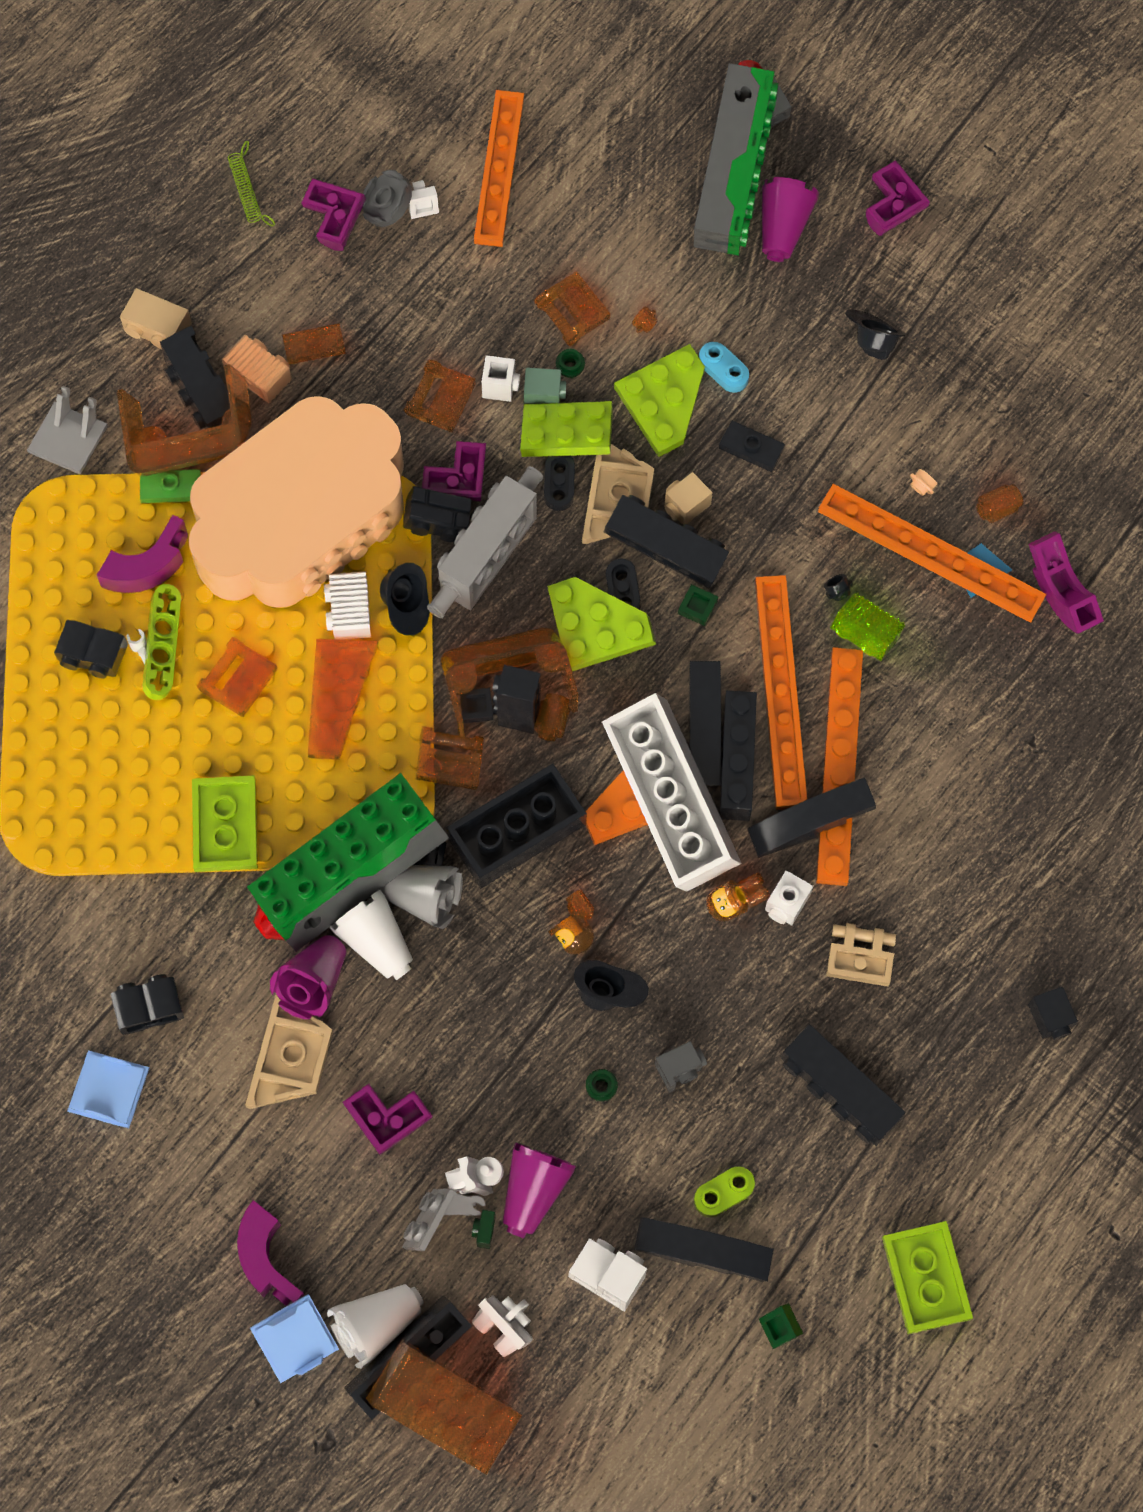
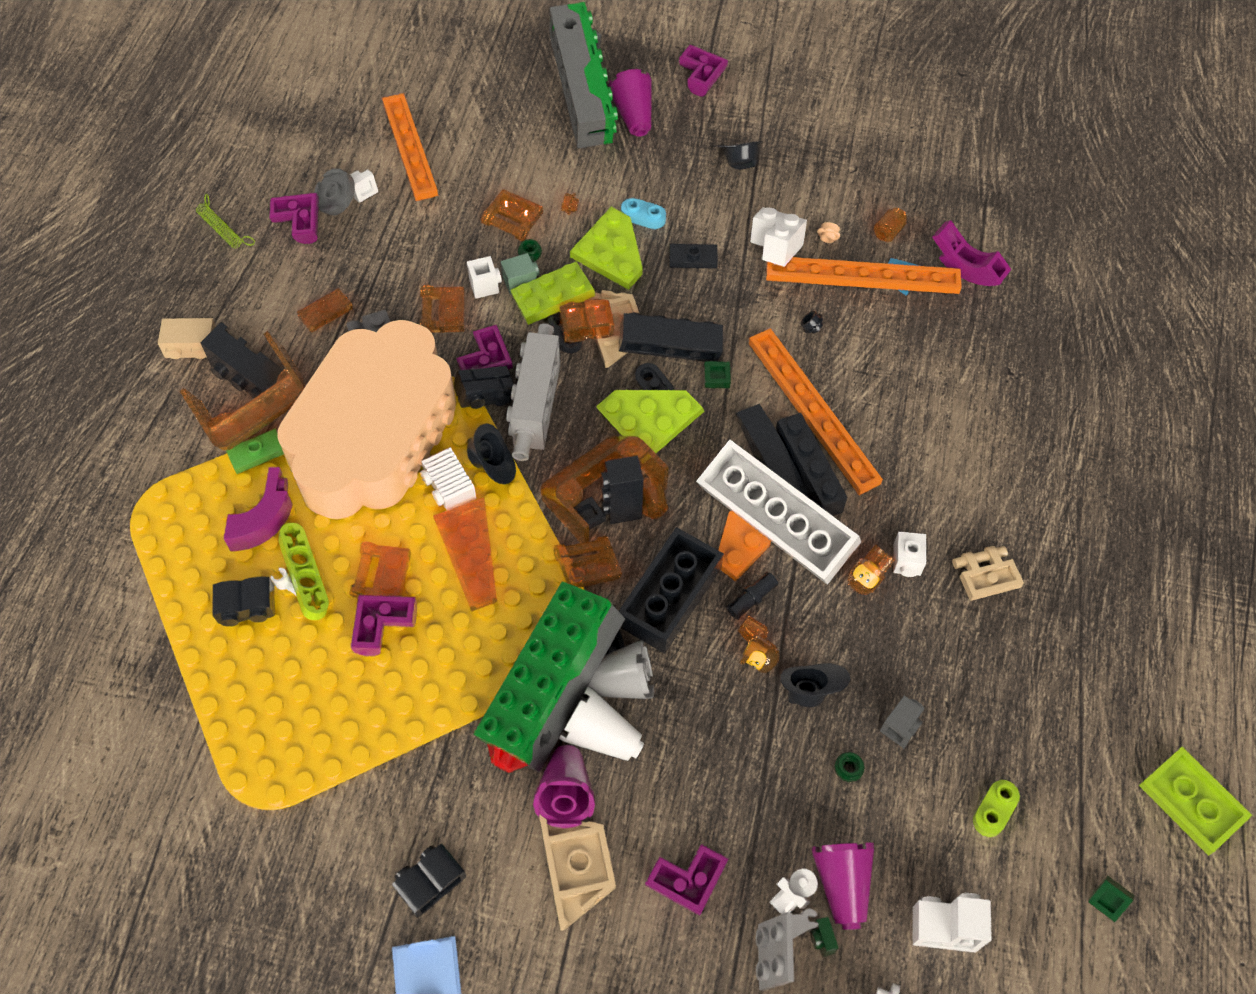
camera: 25 degrees left, 10 degrees down
(67, 435) = (150, 449): light grey plate -> none
(209, 720) = (376, 612): none -> magenta brick
(224, 823) = (426, 693): lime plate -> none
(264, 372) = (297, 340): light nougat brick -> none
(358, 387) = (370, 322): none -> flat silver plate
(583, 481) = (586, 320): none -> clear orange brick
(600, 868) = (752, 595): none -> black pin
(687, 498) = (669, 302): tan brick -> none
(703, 1249) = (1011, 864): black slope -> none
(811, 817) = (892, 486): black slope -> none
(840, 759) = (888, 447): orange plate -> none
(842, 1085) = (1039, 677): black brick -> none
(856, 465) = (779, 234): none -> white brick
(867, 626) = (850, 338): clear neon green brick -> none
(1053, 1014) = (1154, 552): black brick -> none

